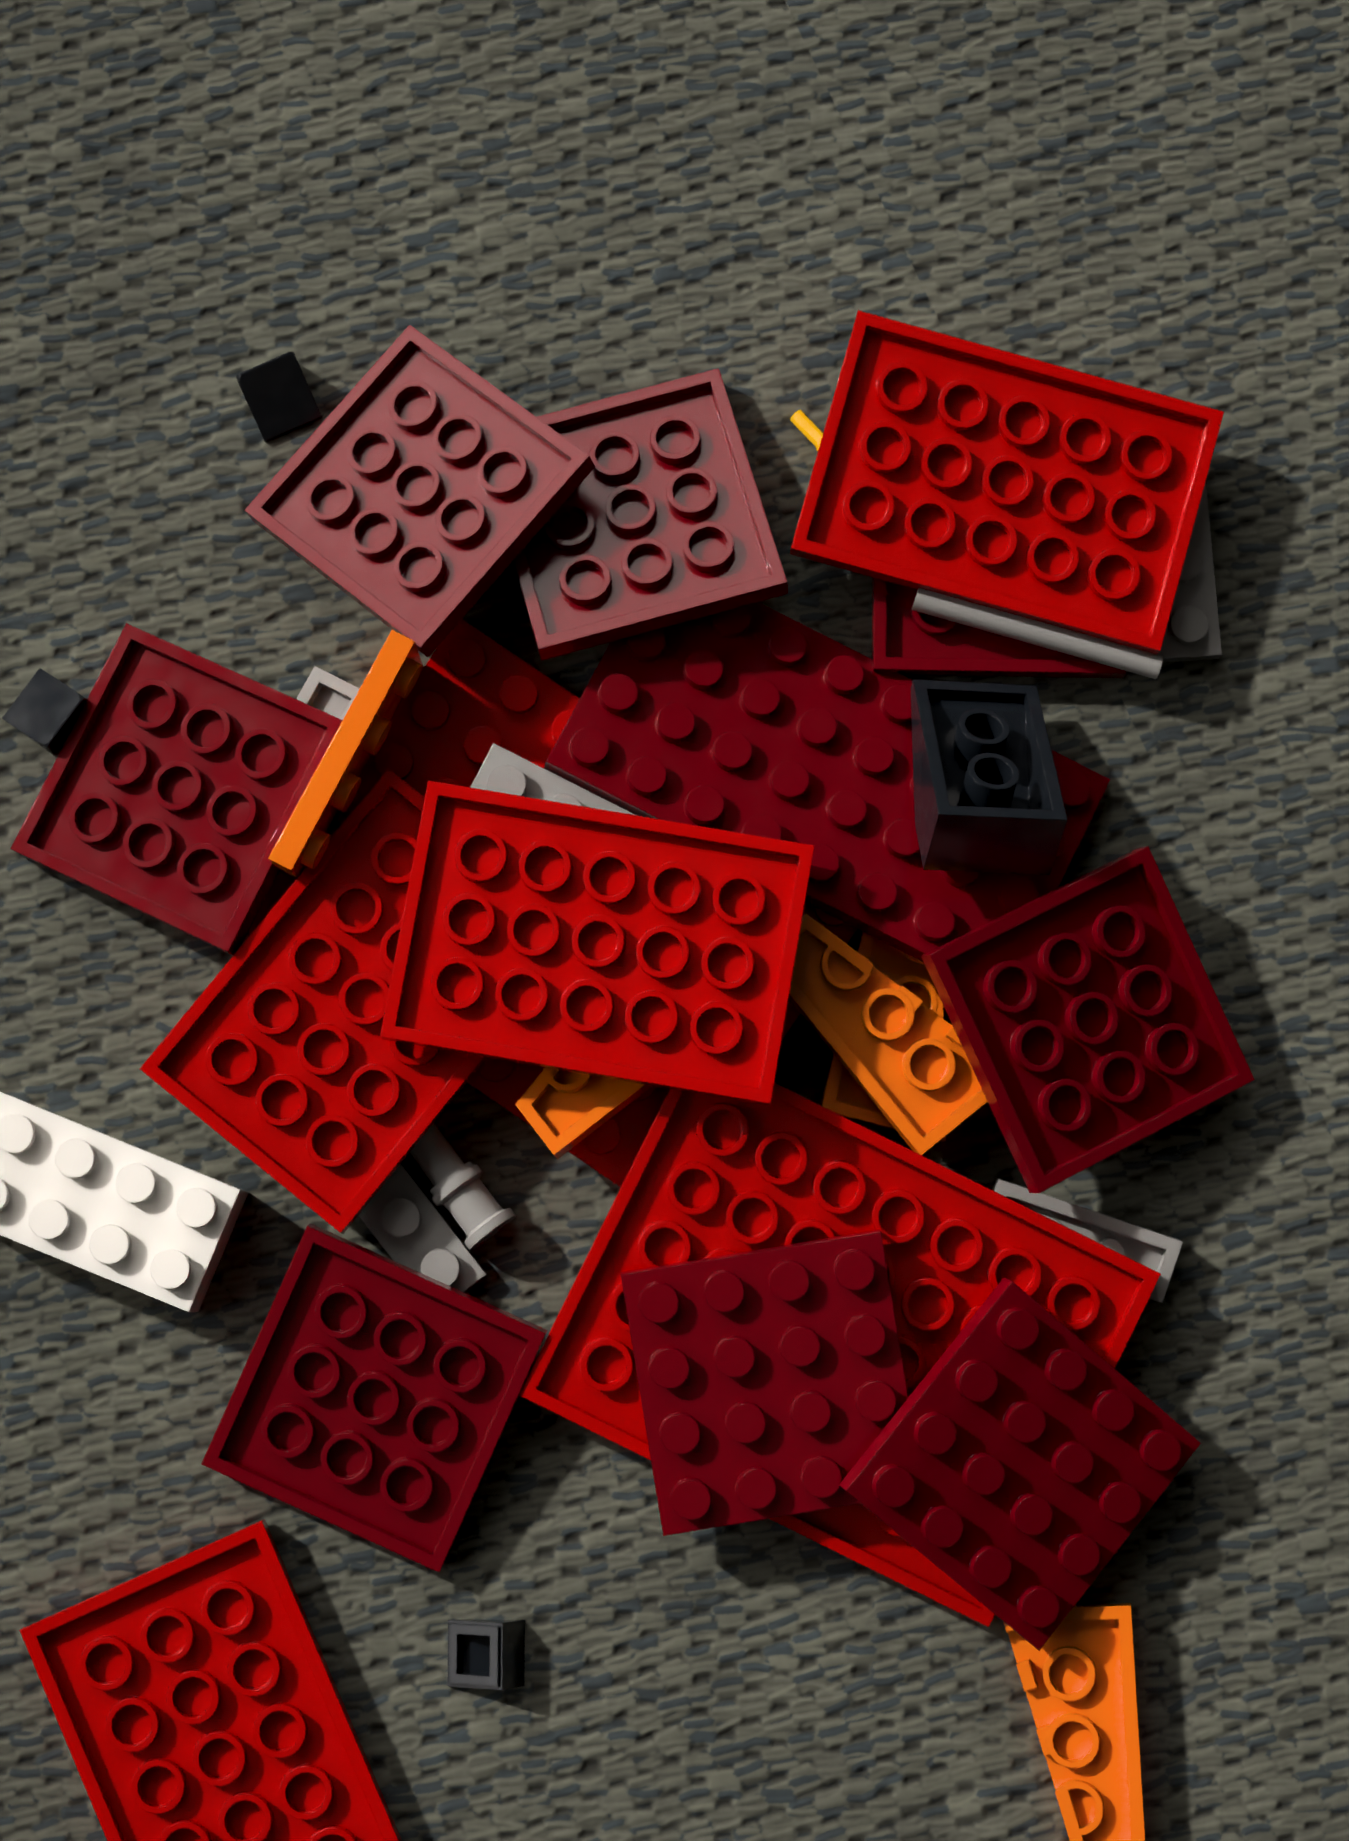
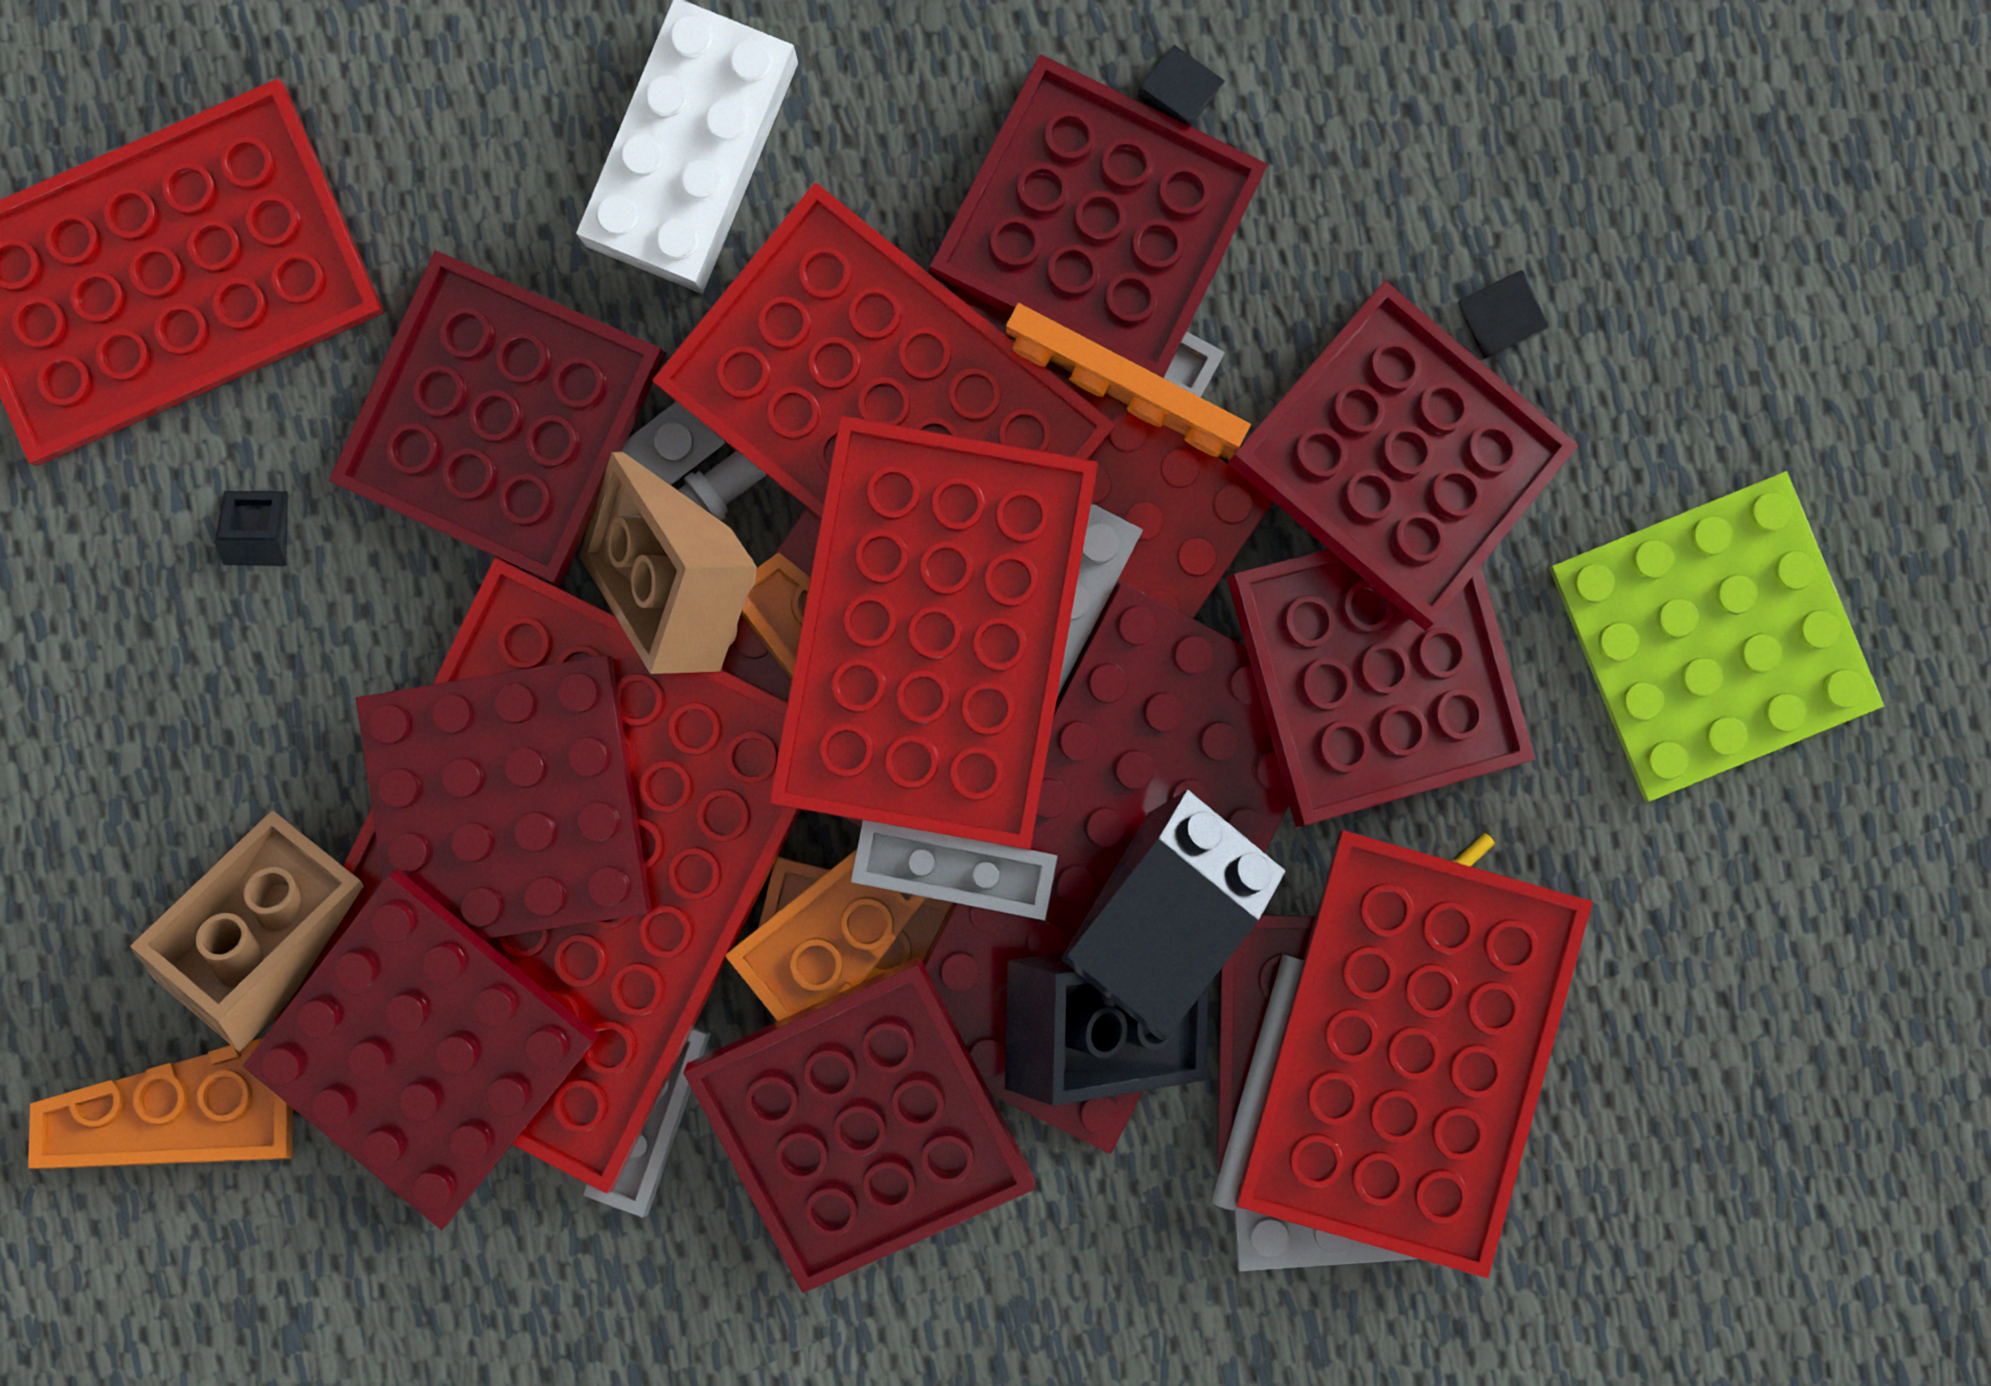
camera: 95 degrees right, 5 degrees up
(532, 1216) = (666, 570): none -> medium nougat slope
(597, 198) = (1716, 637): none -> lime plate
(834, 921) = (955, 869): none -> light grey plate
(874, 706) = (1172, 912): none -> black slope
(900, 1645) = (249, 930): none -> medium nougat slope

